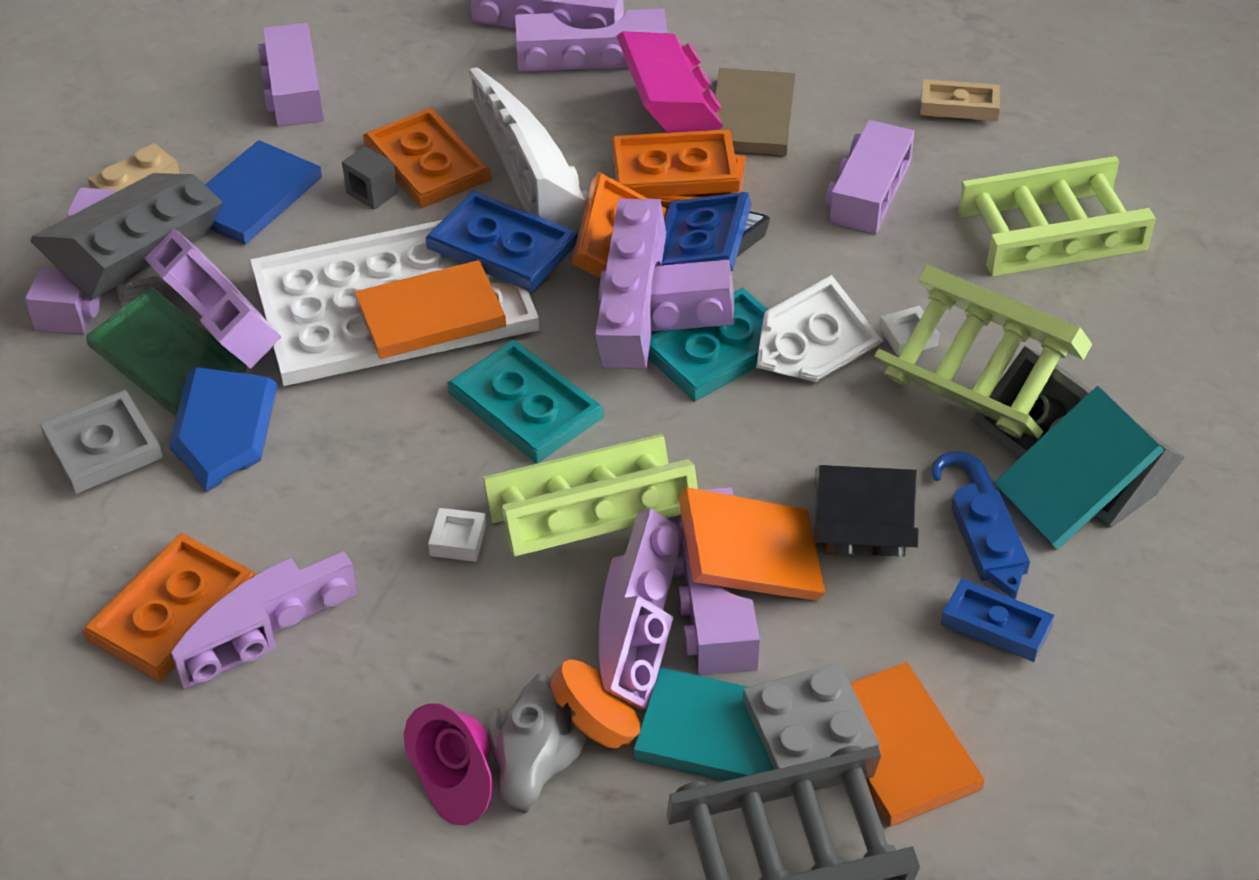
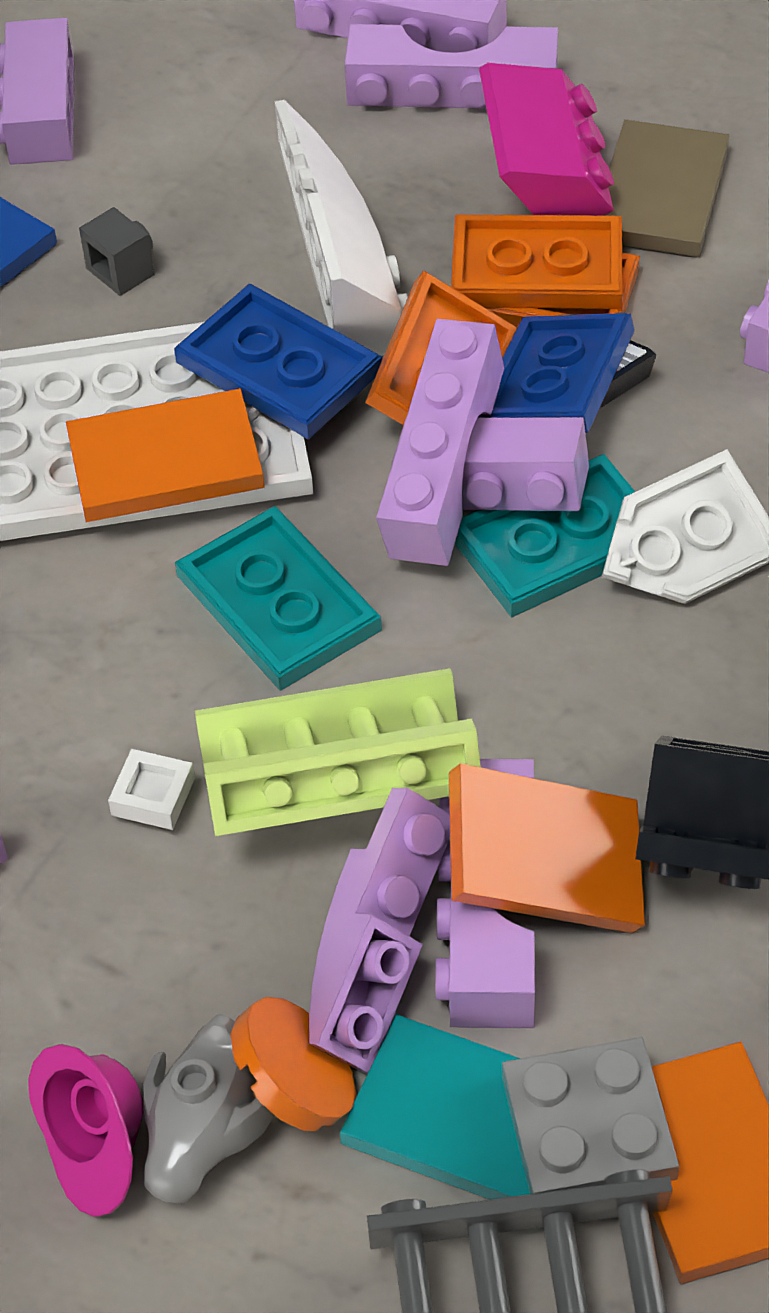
camera: 10 degrees right, 5 degrees up
(428, 157) = (202, 225): orange tile -> none

